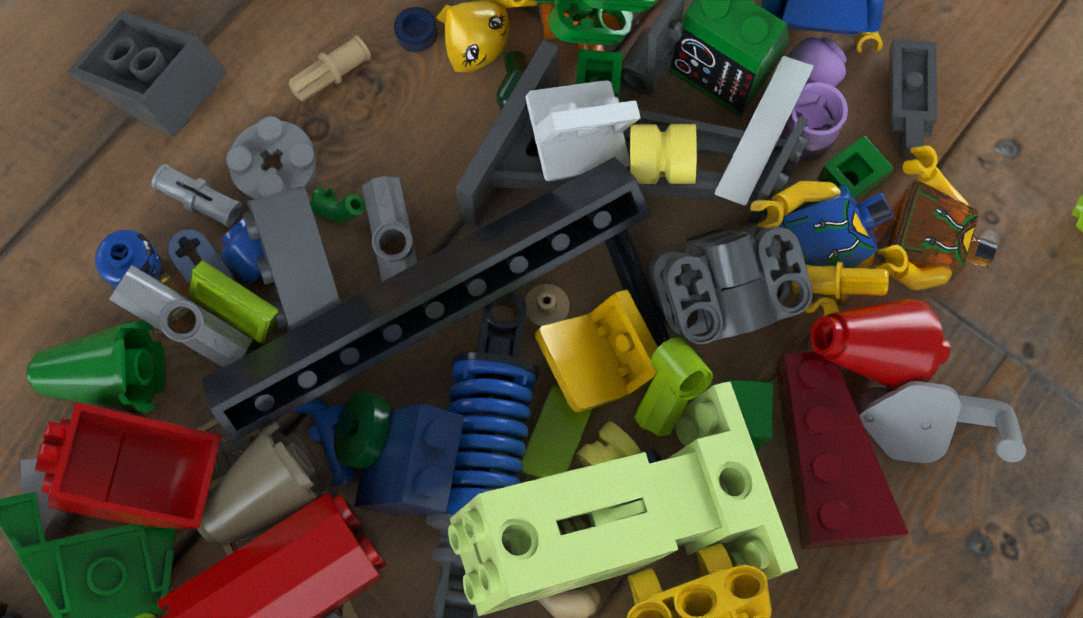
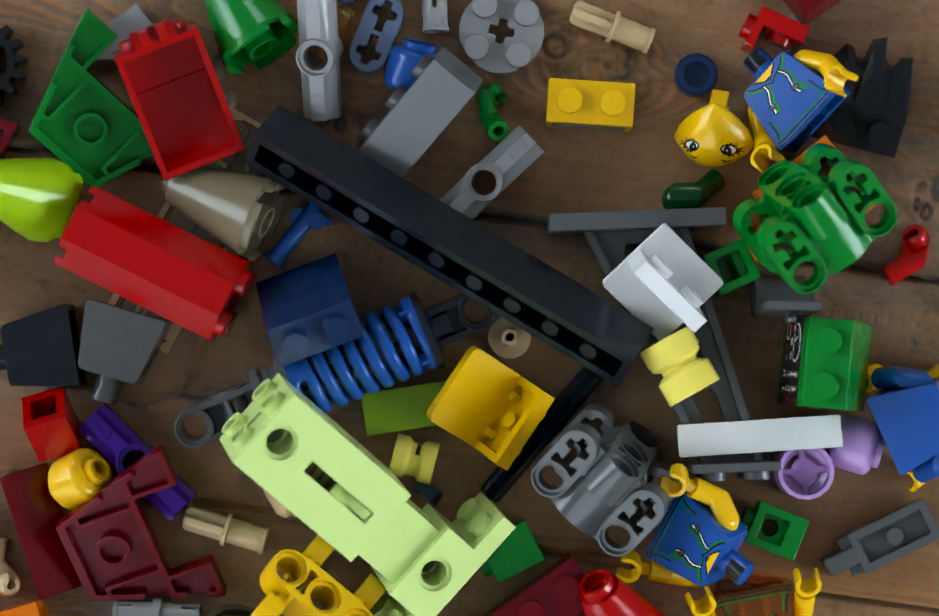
camera: 60 degrees right, 15 degrees up
(232, 302) = (356, 85): lime tile -> none
(362, 430) = (315, 254): dark green piece -> none
(383, 120) = (590, 105): none -> yellow brick
(678, 378) = (495, 482): lime piece -> none
(840, 280) = (660, 573): yellow axle -> none

